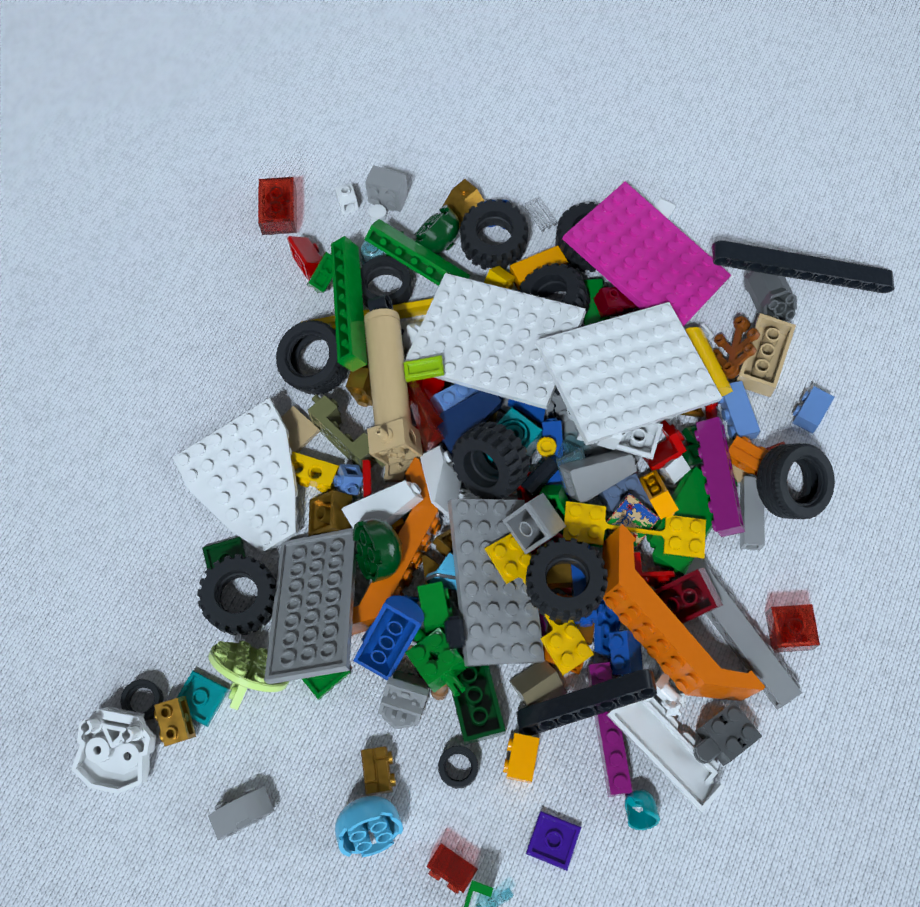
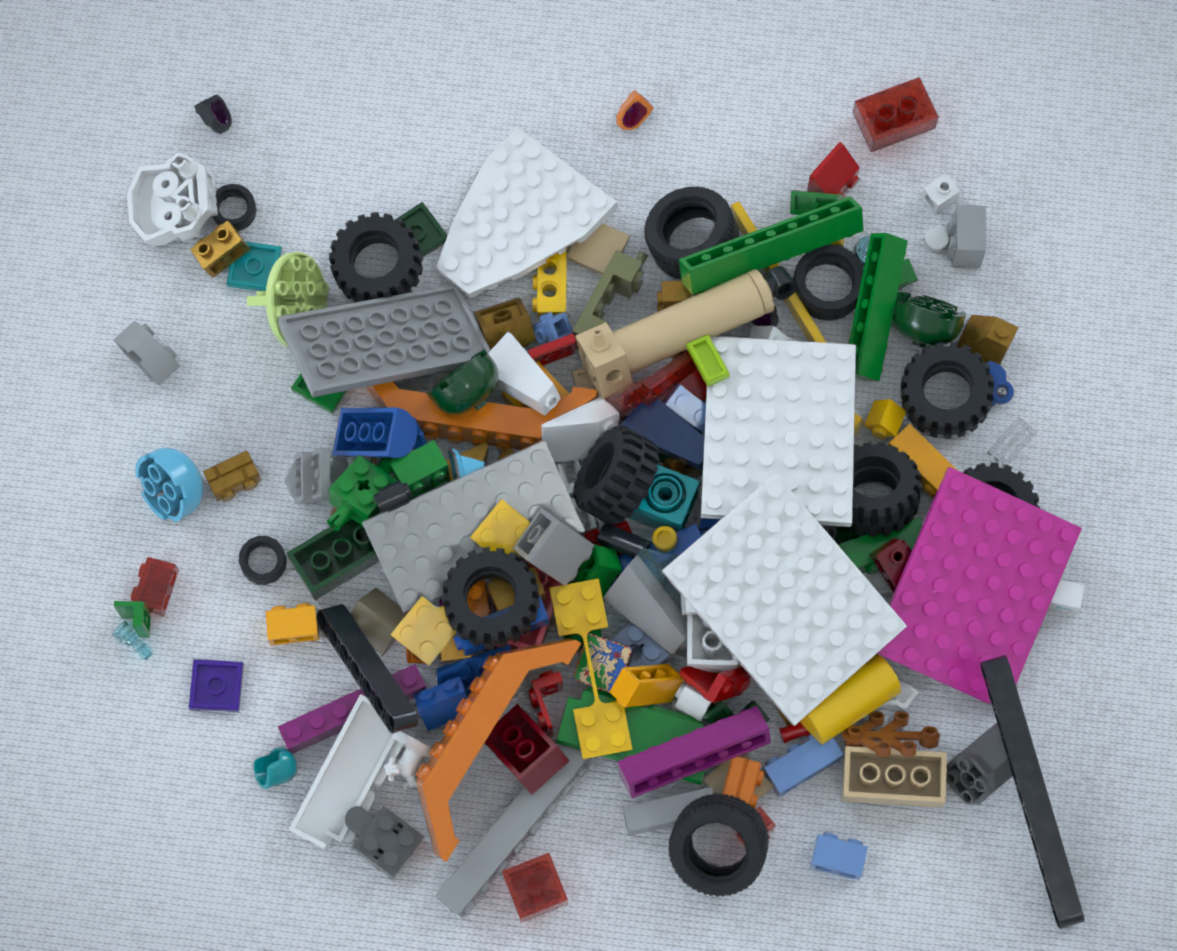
camera: 70 degrees right, 5 degrees up
(53, 690) = (214, 114): none -> black rock
(197, 372) = (633, 111): none -> rock

